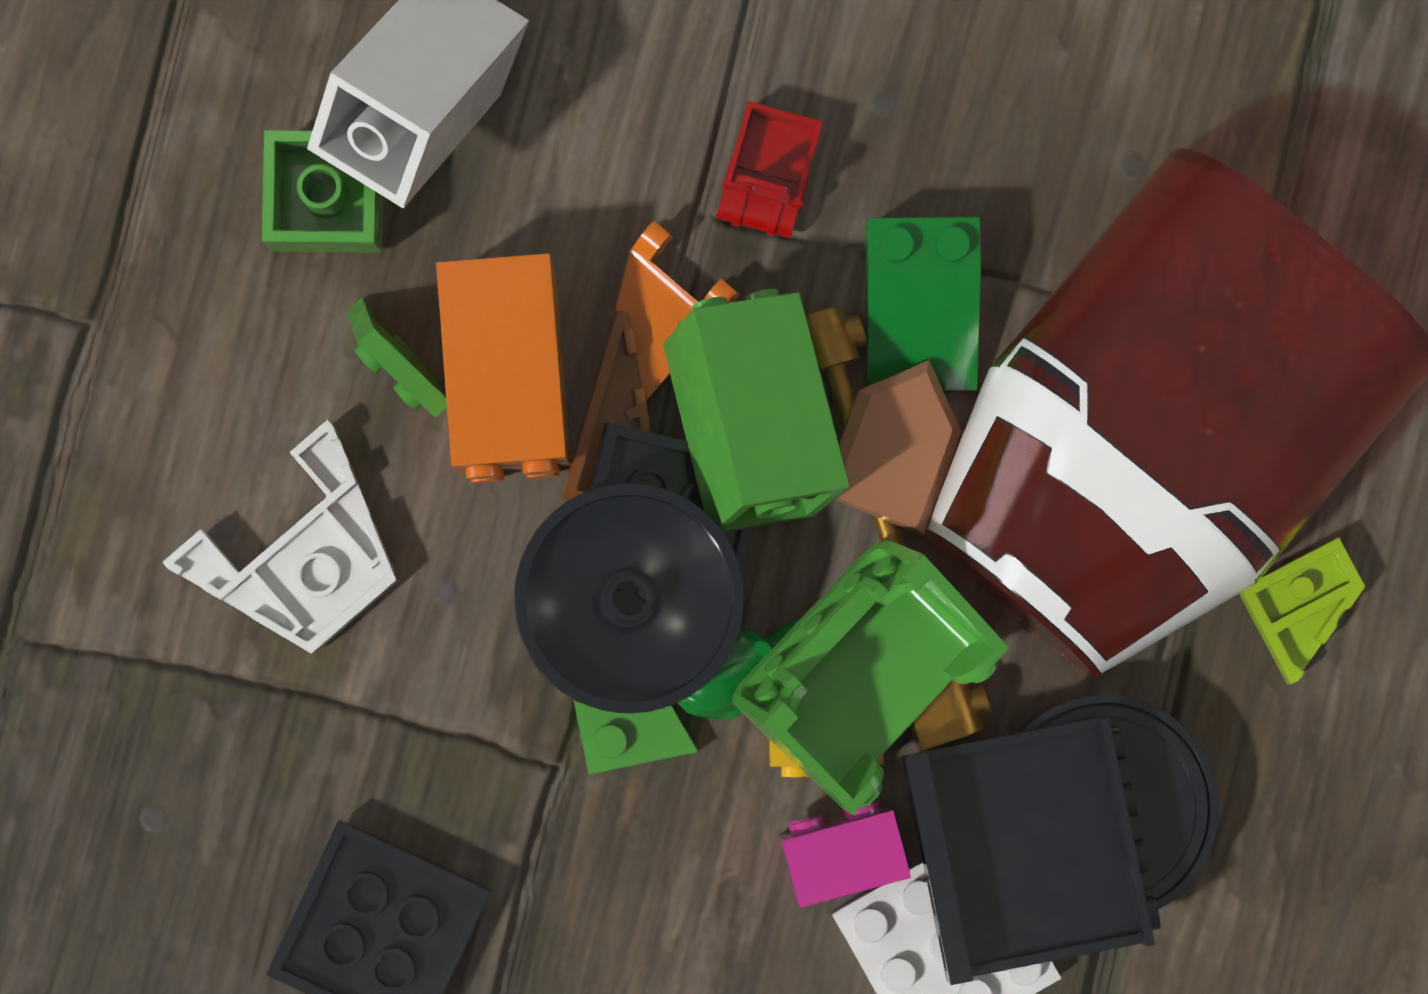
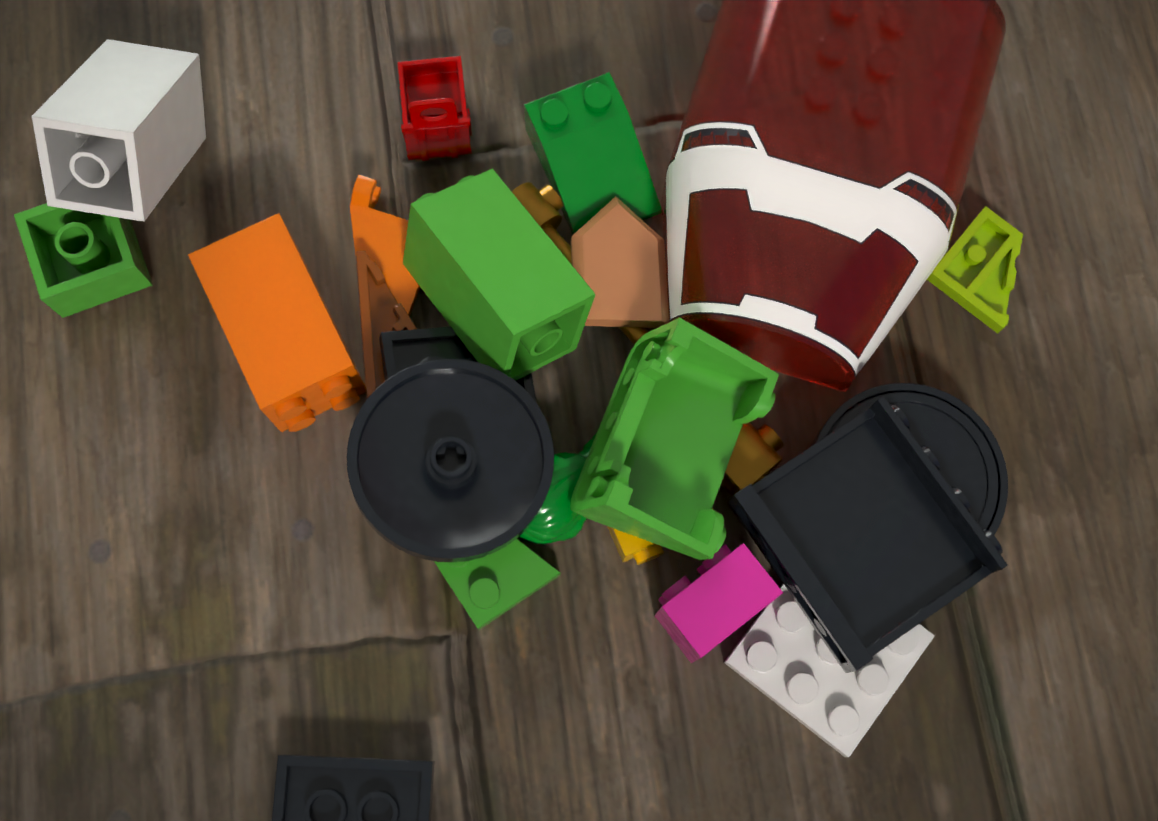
camera: 25 degrees left, 10 degrees down
(316, 571) = (183, 558): white wing -> none
(381, 350) = (173, 351): bright green wing -> none

